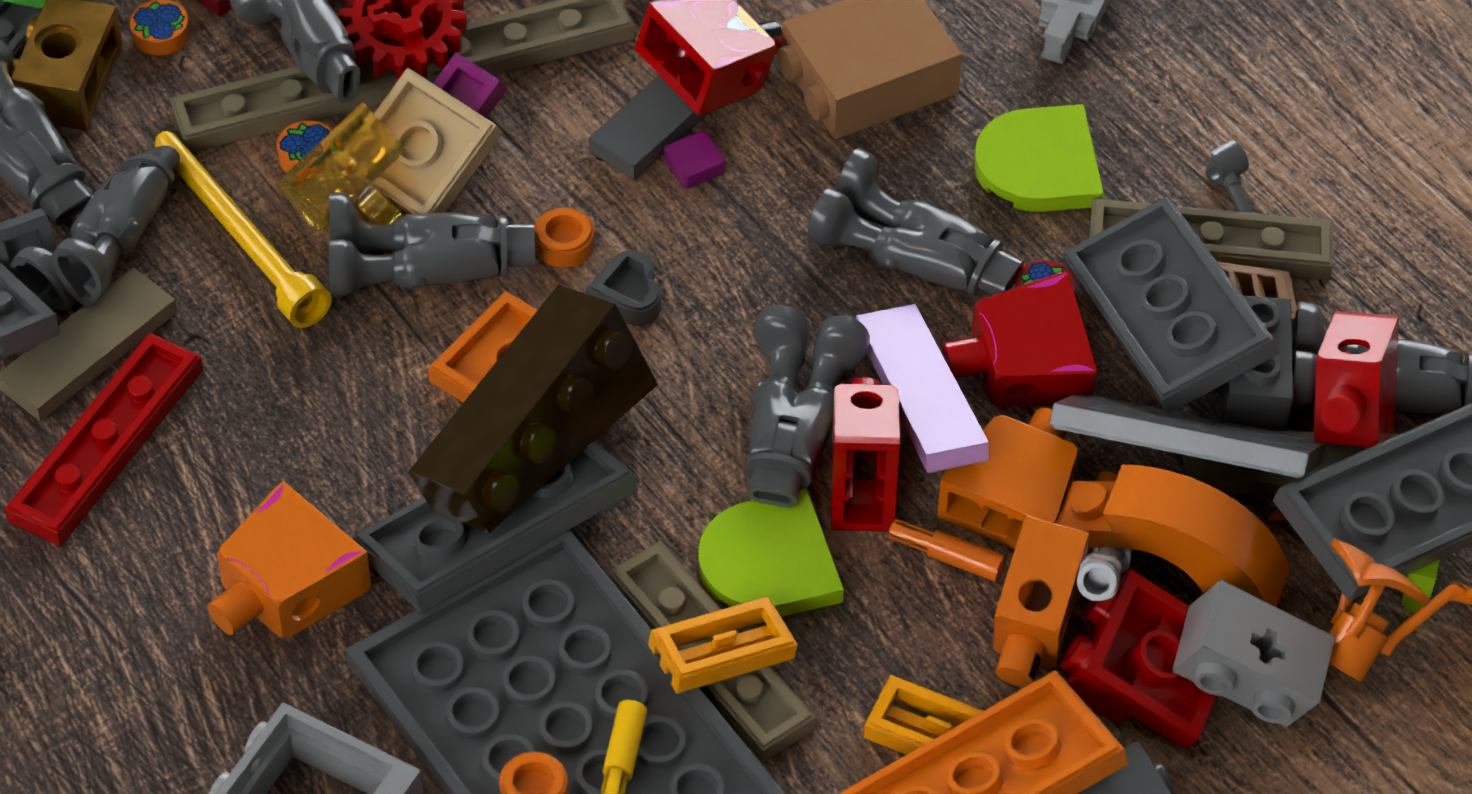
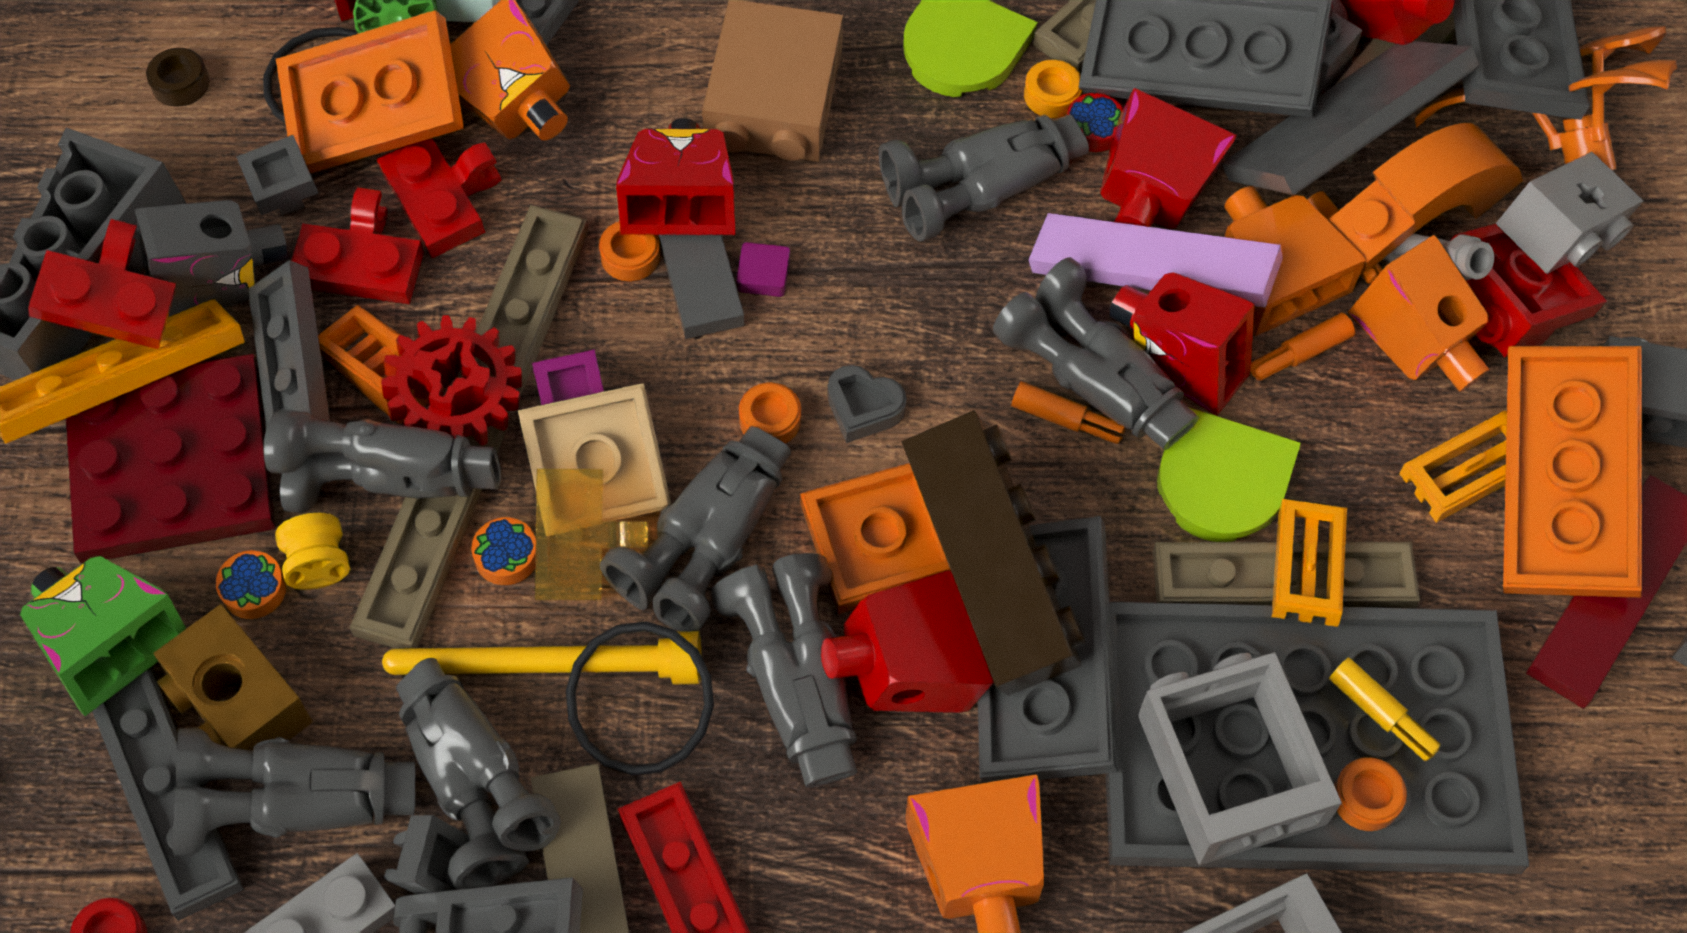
camera: 55 degrees left, 10 degrees up
(209, 38) = (312, 551): none -> yellow wheel
(277, 321) = (572, 704): none -> black piece
(346, 373) = (801, 699): none -> dark grey piece
(402, 413) = (912, 649): none -> red torso
(448, 718) = (1261, 821): none -> light grey window
(627, 71) = (628, 255): none -> orange tile
(732, 415) = (1064, 412): none -> orange pin
(1049, 238) = (1051, 88): none -> light orange tile

